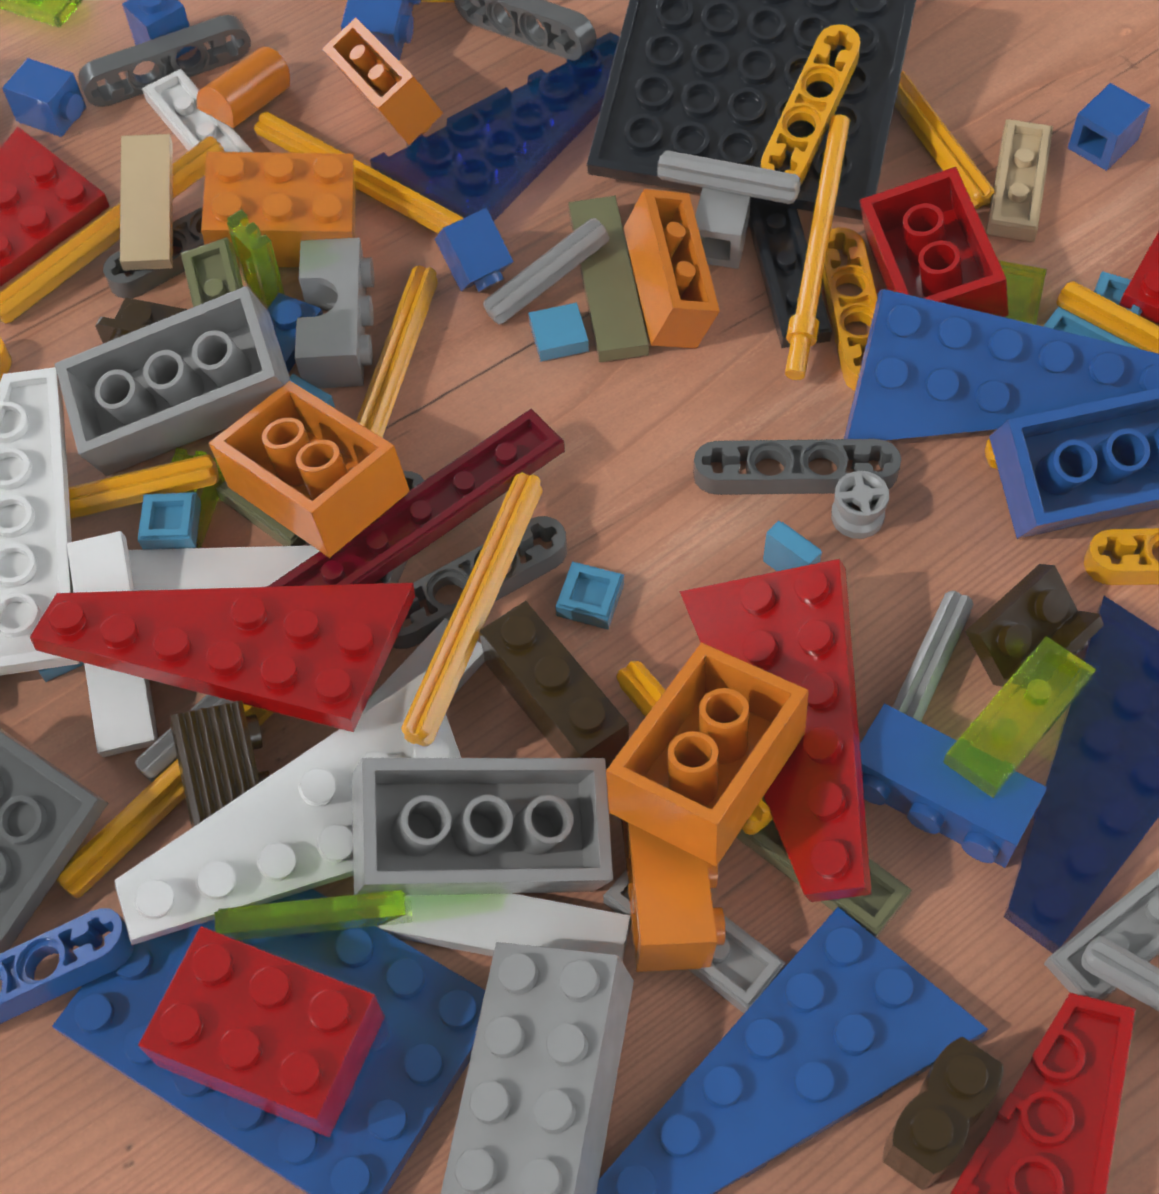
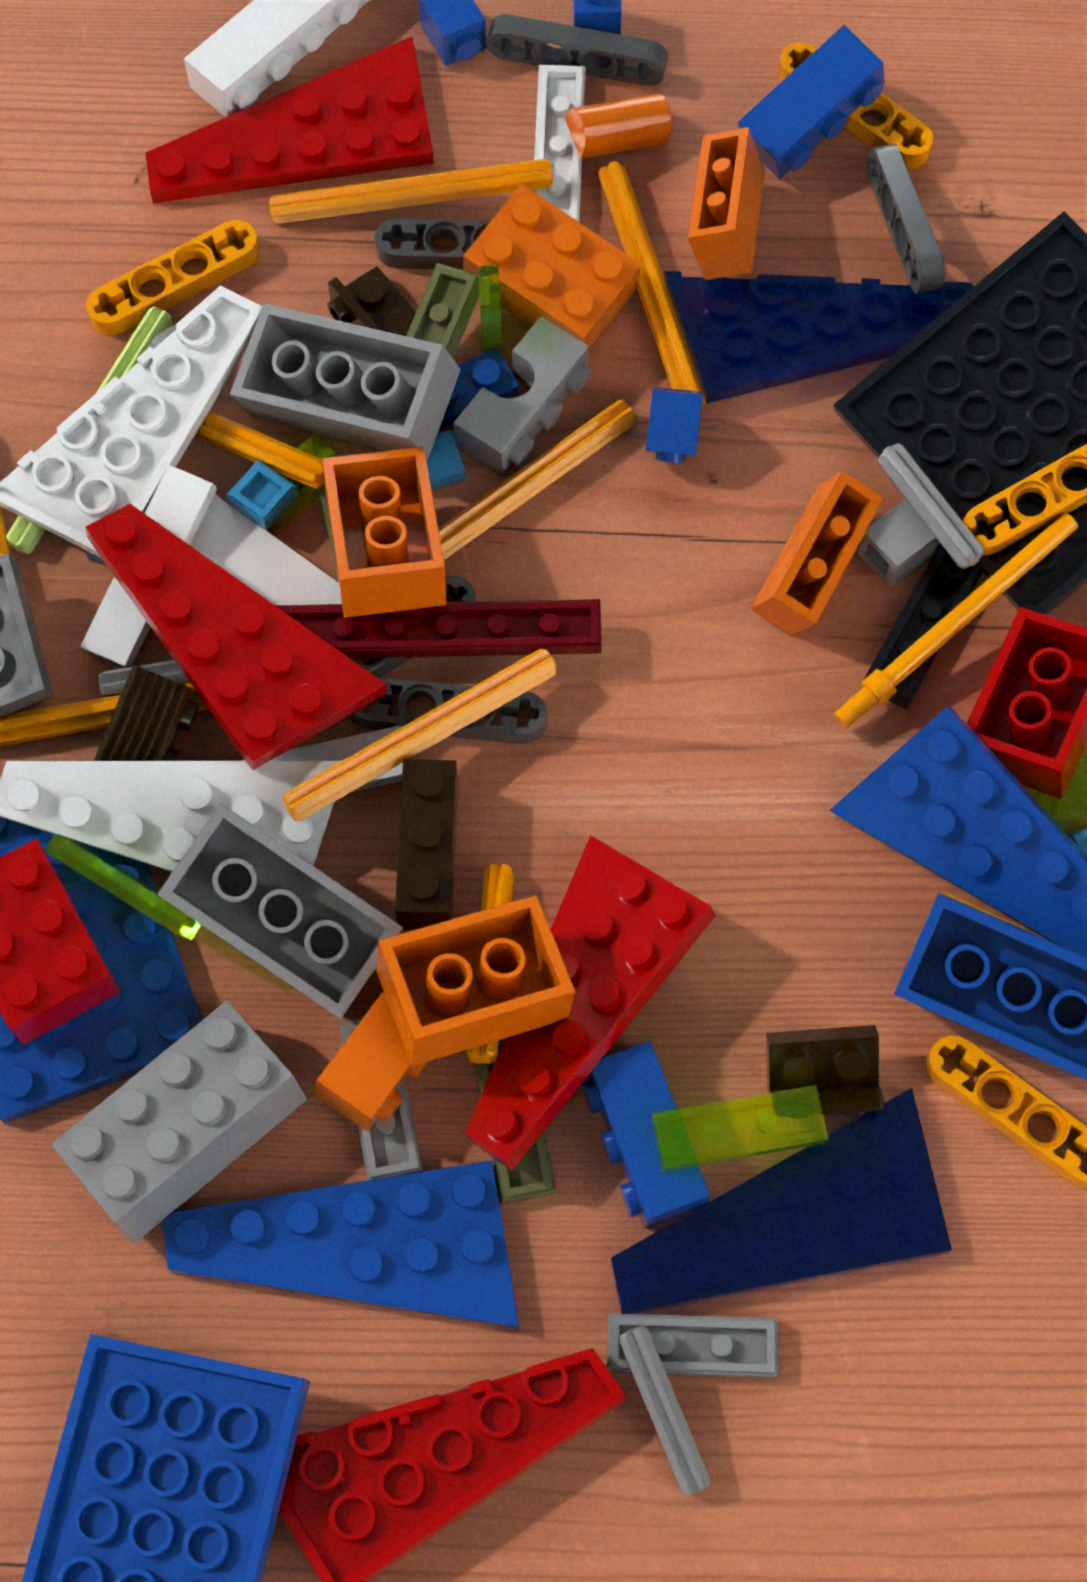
camera: 35 degrees right, 10 degrees up
(146, 202) = (450, 191): tan tile -> none
(481, 920) = (266, 1006): white tile -> none
(546, 271) = (721, 480): light grey axle -> none
(558, 332) = (689, 541): dark azure tile -> none
(590, 595) = (525, 786): dark azure tile -> none
(610, 285) = (770, 520): olive tile -> none
(788, 549) = (698, 869): dark azure tile -> none
(795, 457) = (779, 793): dark grey beam -> none
(845, 308) = (940, 691): light orange beam -> none
(868, 493) = (795, 858): light grey wheel -> none
(933, 655) = (730, 1035): light grey axle -> none
(938, 1119) = (414, 1357): dark brown brick -> none

